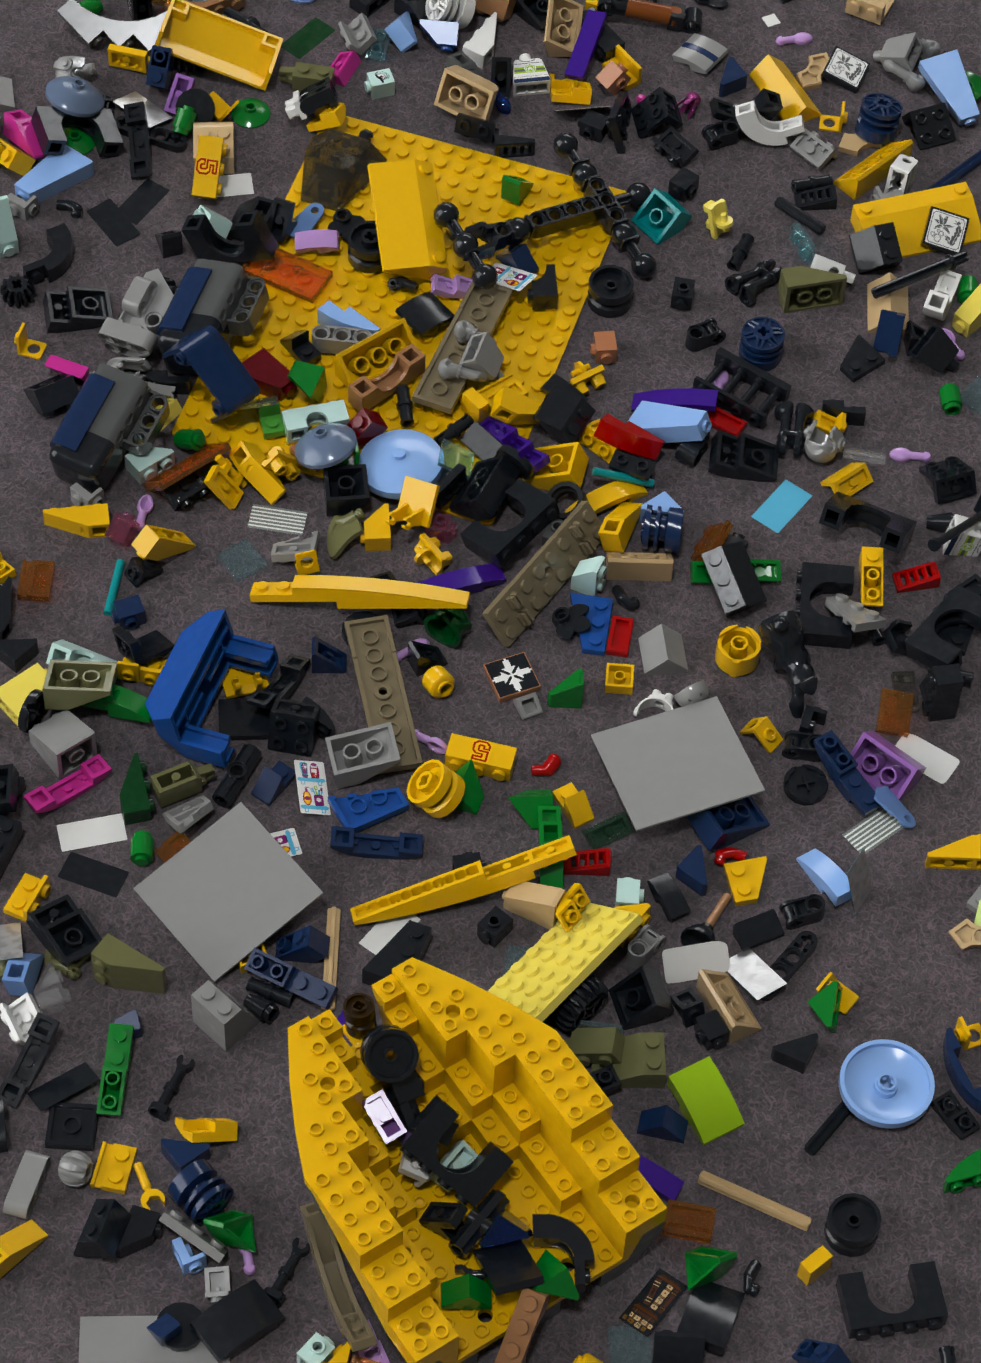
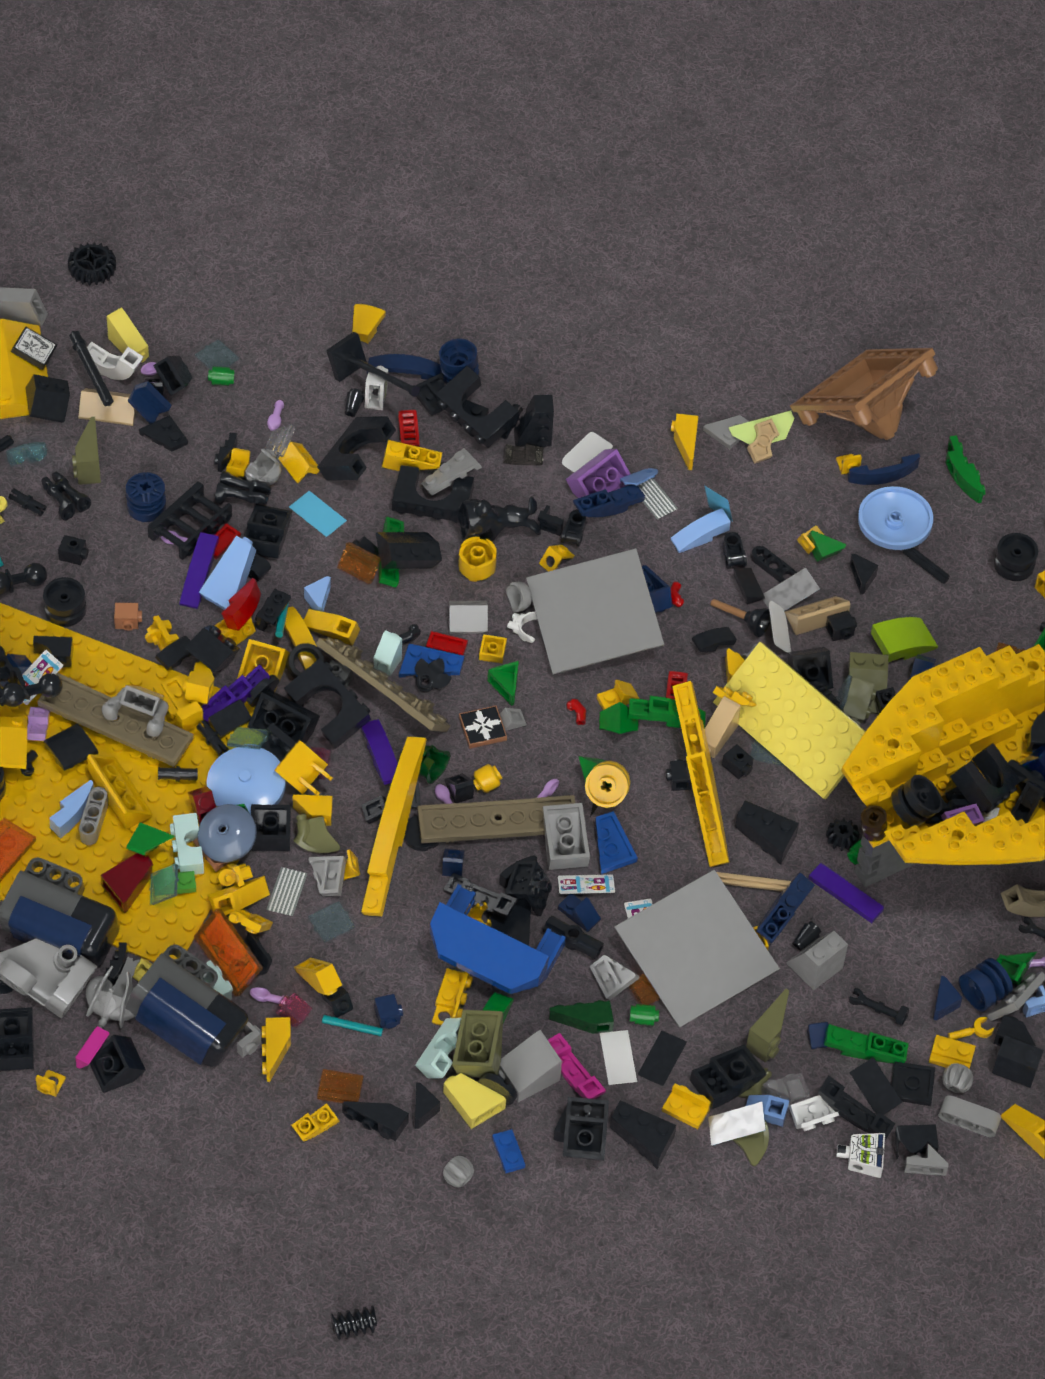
camera: 85 degrees left, 0 degrees up
(143, 648) = (430, 999): black bracket -> none
(180, 782) = (581, 978): olive hinge -> none
(189, 439) = (195, 945): green brick -> none
(207, 1129) = (921, 982): yellow slope -> none
(217, 368) = (145, 894): dark blue windscreen -> none
(270, 991) = (791, 928): black pin -> none
(300, 348) = (92, 852): black slope -> none
(303, 946) = (750, 899): dark blue slope -> none
(376, 846) = (650, 837): dark blue slope -> none
(384, 932) = (737, 844): white sticker -> none
(405, 367) = (161, 796): medium nougat arch -> none
(428, 552) = (347, 771): yellow hips -> none
(488, 757) = (566, 759): yellow brick -> none
(607, 830) = (643, 676): clear green slope -> none
(628, 892) = (712, 666): light aqua brick -> none
(639, 566) = (373, 618): tan slope -> none
(662, 529) = (346, 593): dark blue wheel -> none
(688, 1005) = (817, 638): black bracket -> none
(692, 871) = (691, 618): dark blue slope -> none
(704, 335) = (123, 541): black piece -> none
(745, 879) = (698, 587): yellow wing -> none
(754, 1200) = (989, 618): tan axle -> none
(805, 785) = (609, 535): black tile -> none
(822, 263) = (72, 432): white torso -> none
(894, 712) = (547, 463): clear orange plate -> none
(896, 636) = (474, 449): black bracket -> none
(950, 479) = (304, 389): black bracket -> none
(956, 1117) = (920, 482): black slope -> none
(966, 287) = (102, 341): green brick -> none

